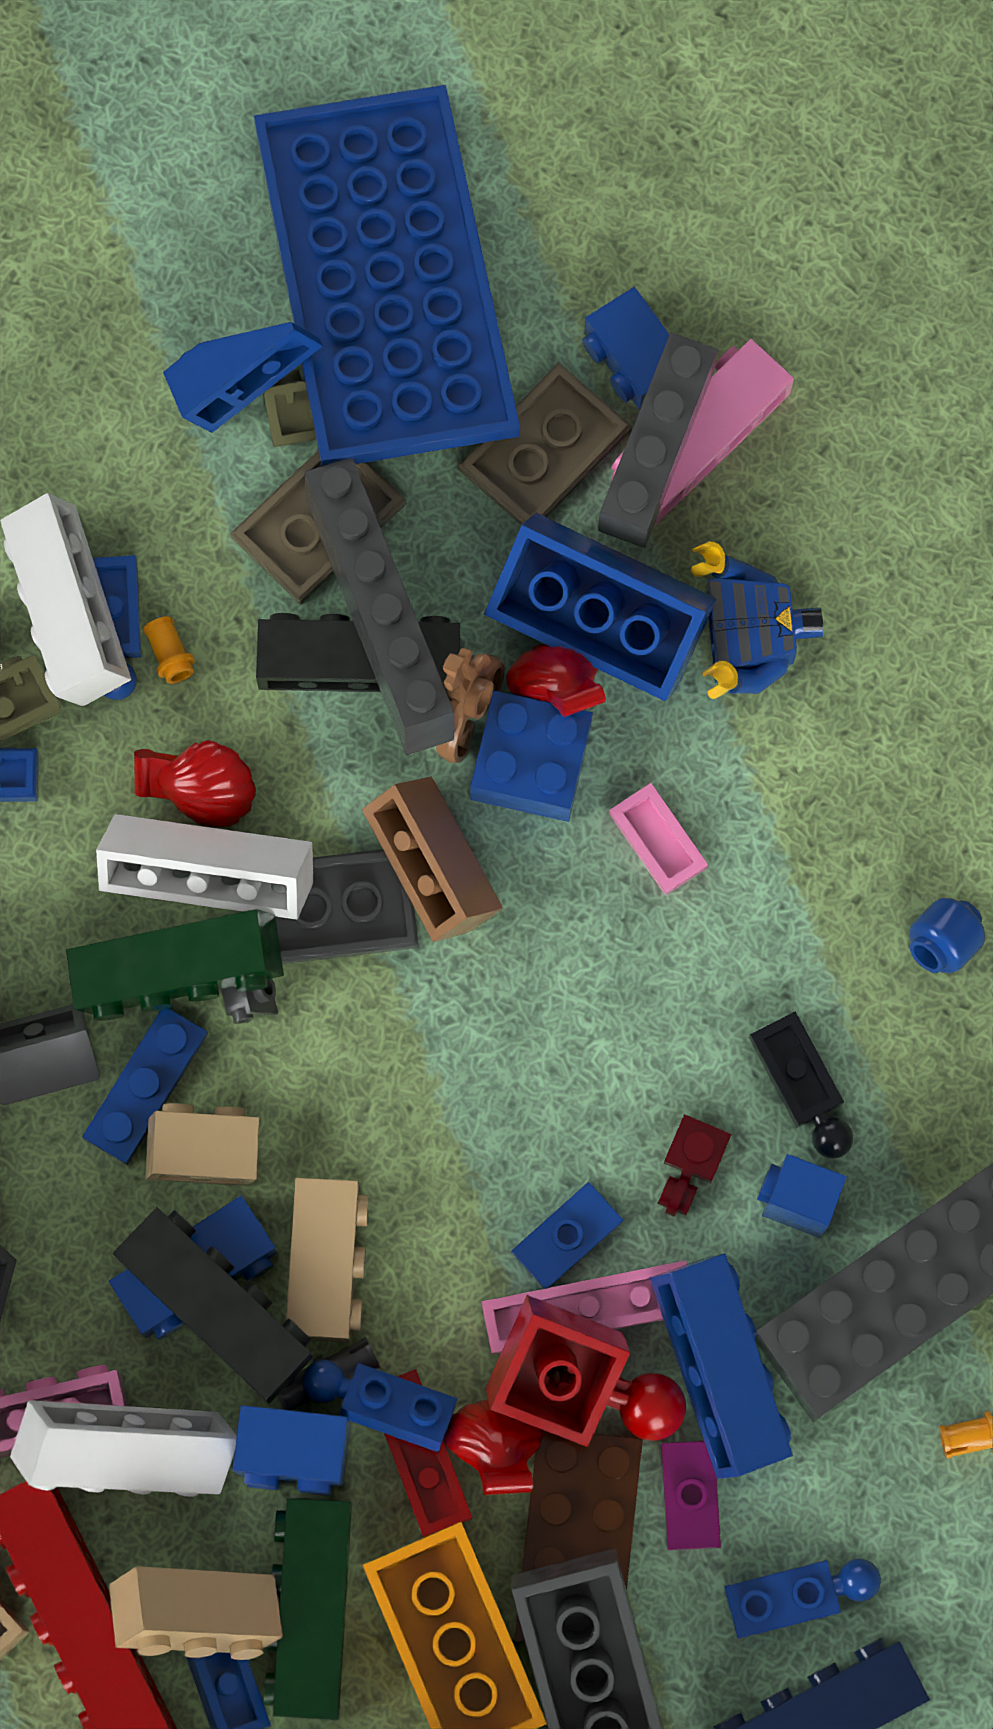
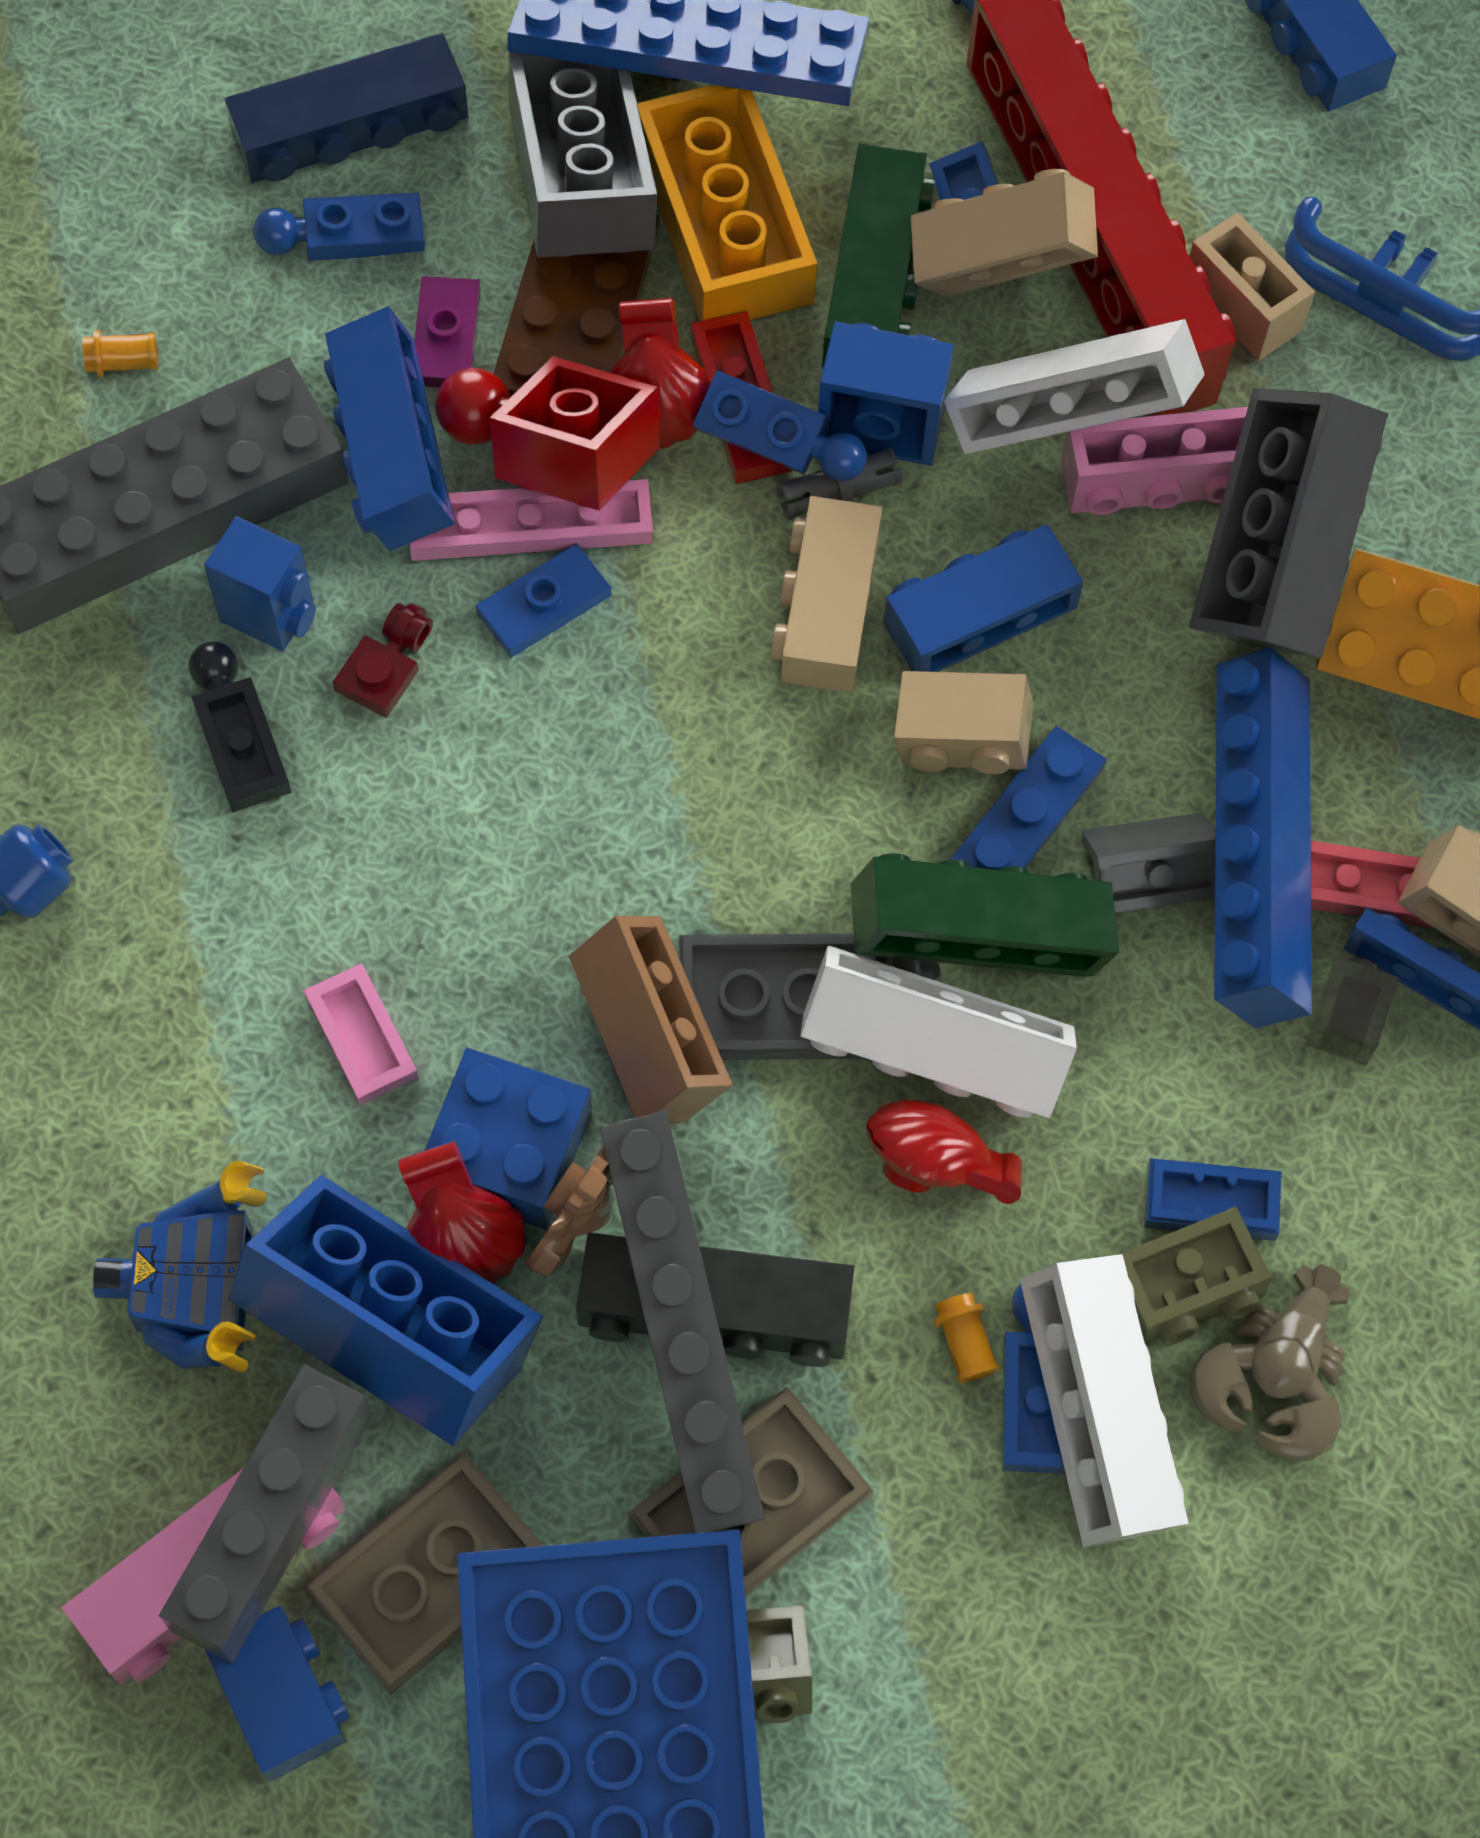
camera: 175 degrees left, 10 degrees down
(214, 1304) = (963, 527): pearl dark grey brick -> none
(232, 371) = (863, 1697): blue slope -> none

